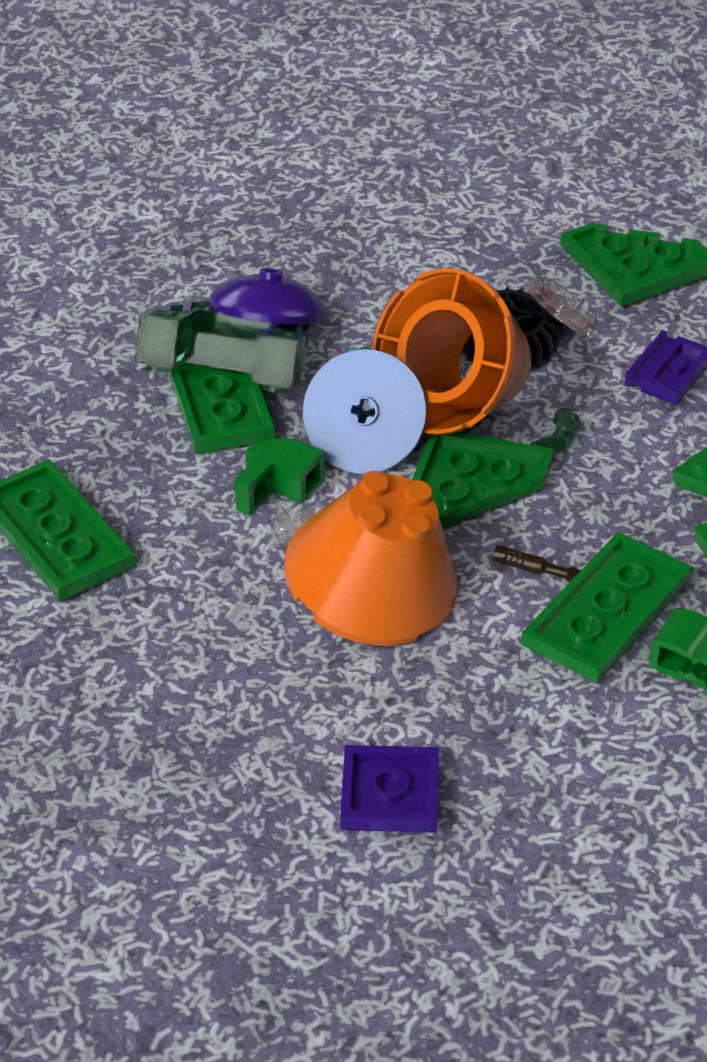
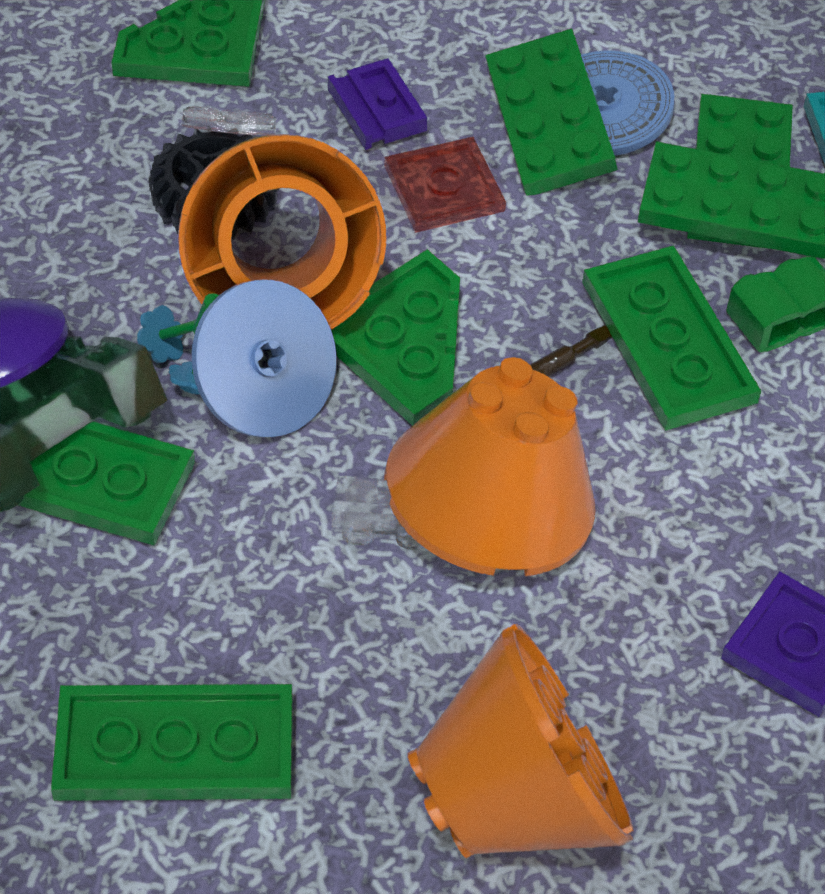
camera: 60 degrees left, 10 degrees up
(158, 664) = (514, 766): none -> orange cone
(278, 467) = (263, 479): green brick -> none
(567, 428) = (405, 237): clear green arm -> none
(635, 436) = (444, 184): none -> clear red tile

